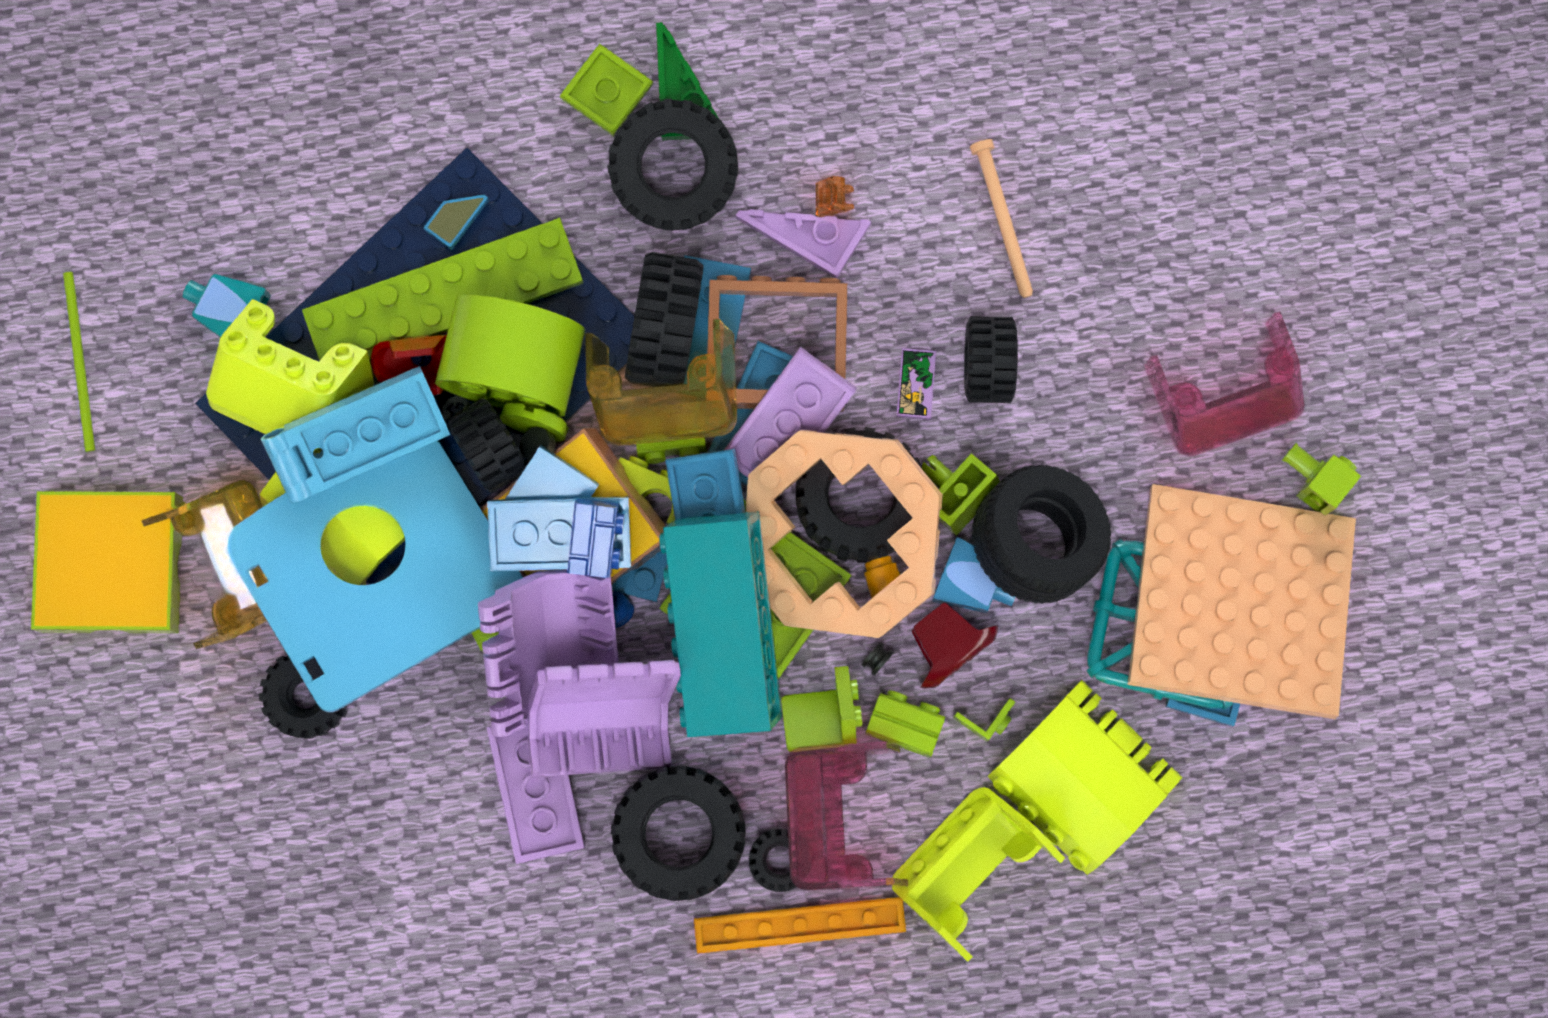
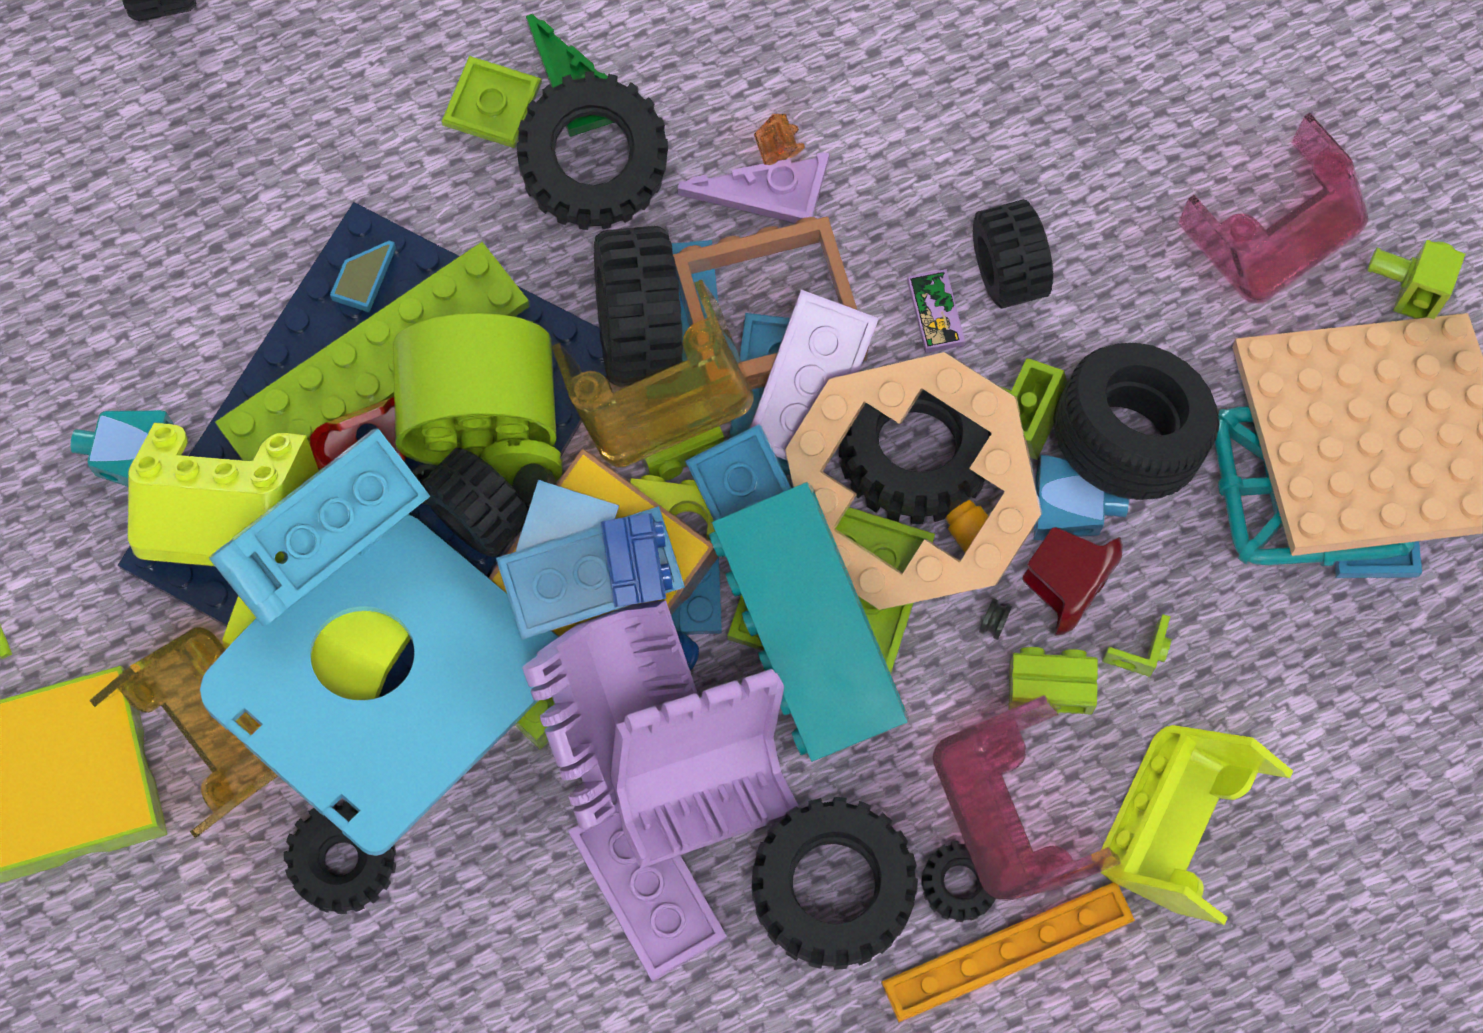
camera: 20 degrees left, 10 degrees down
(823, 716) = (960, 697): lime bracket -> none
(983, 150) = (925, 49): light nougat bar -> none
(1083, 781) = (1278, 682): neon yellow hinge -> none

